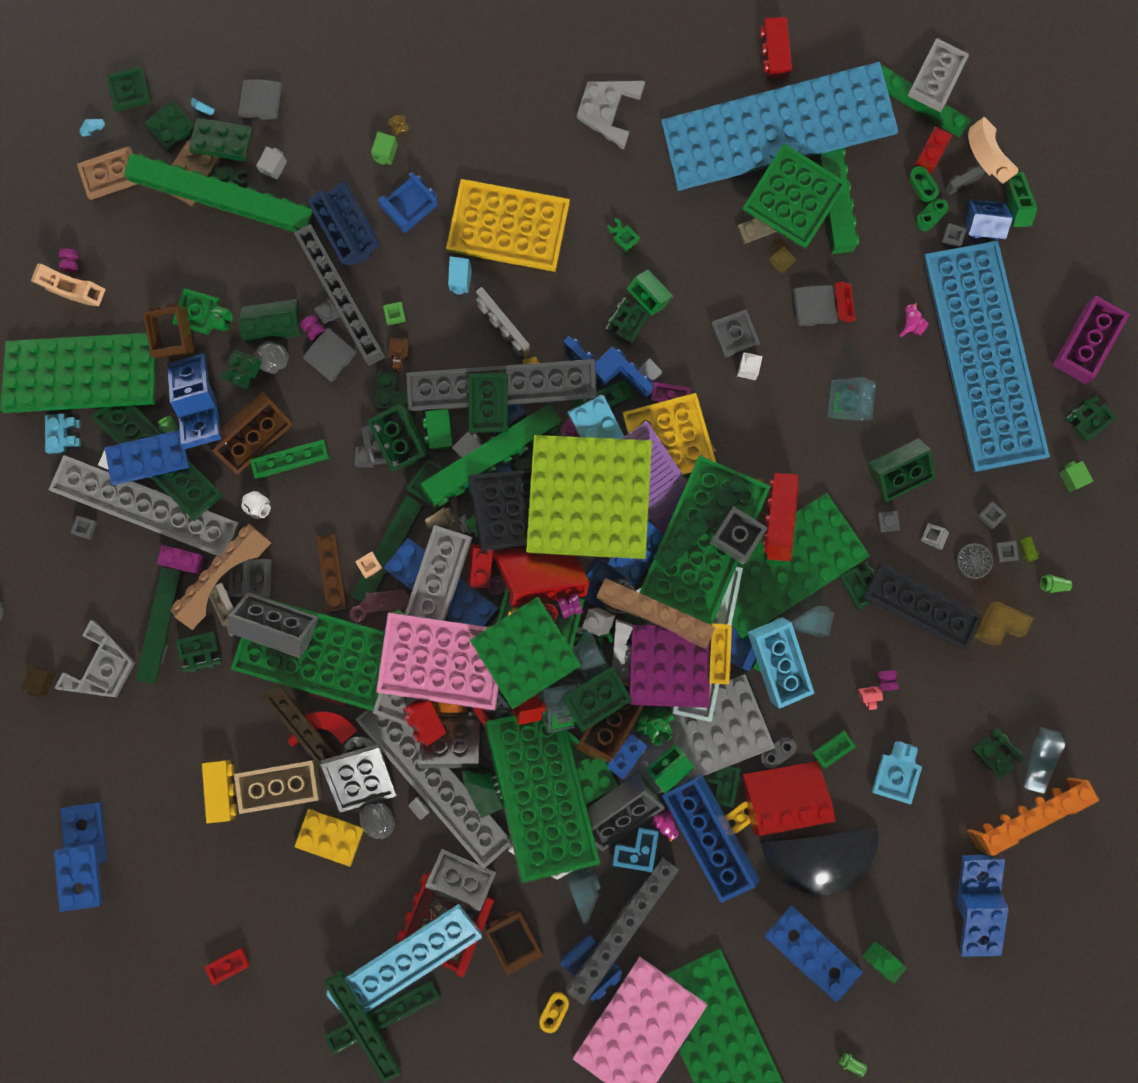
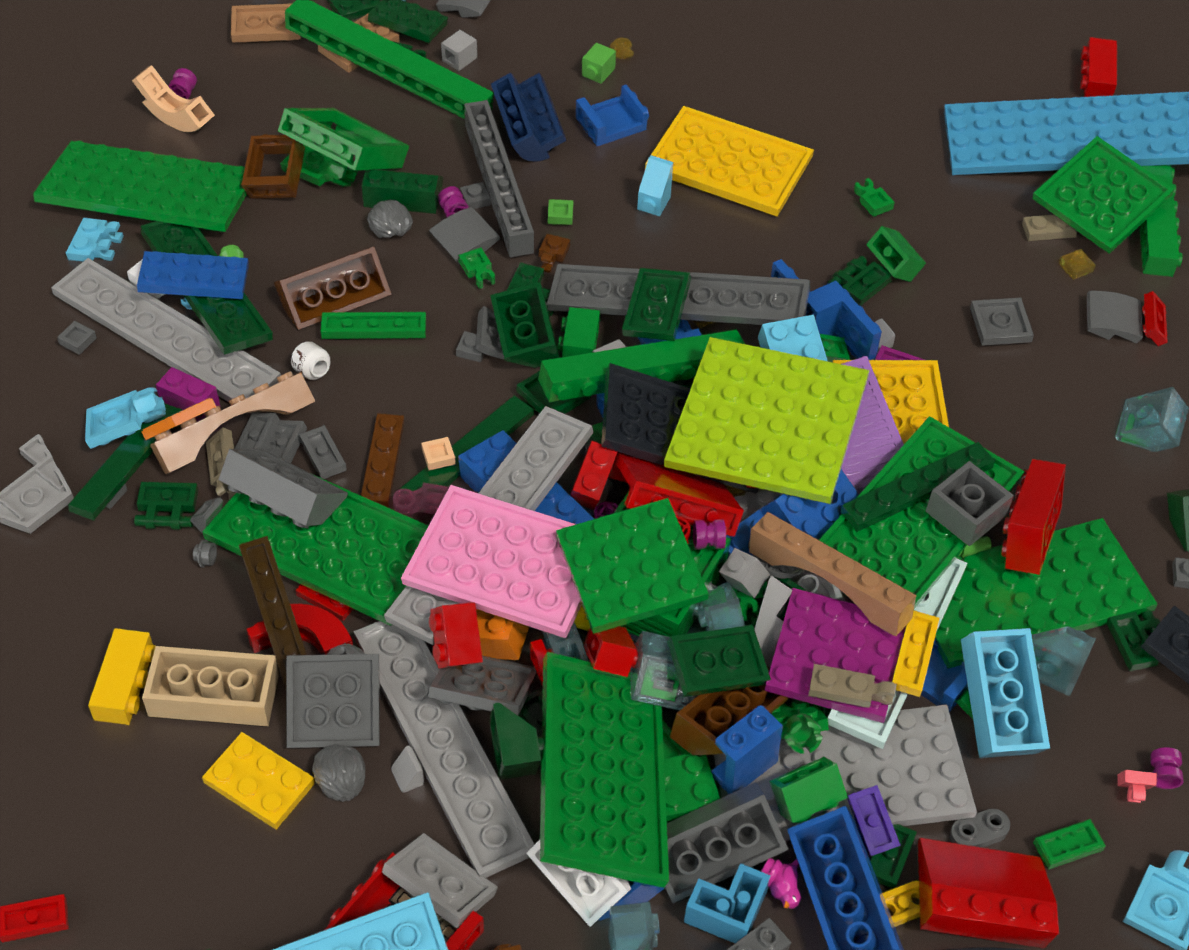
camera: 10 degrees right, 30 degrees down
(142, 592) = (122, 416): none -> medium azure plate
(183, 590) = (178, 418): none -> orange tile
(193, 401) = (276, 237): blue bracket -> none
(207, 314) = (350, 138): none -> green window
(228, 654) = (207, 513): none -> dark grey slope
(238, 683) = (205, 553): none -> dark grey plate
(241, 363) = (350, 218): dark green plate -> none
(289, 580) = (323, 452): none -> dark grey plate
(347, 382) = (477, 264): none -> green plate
(499, 319) = (695, 237): light grey plate -> none
(601, 103) = (874, 78): light grey wing -> none
(681, 697) = (849, 687): none -> dark tan plate
(713, 775) = (873, 820): none -> dark purple plate
(749, 366) = (1015, 355): white brick -> none

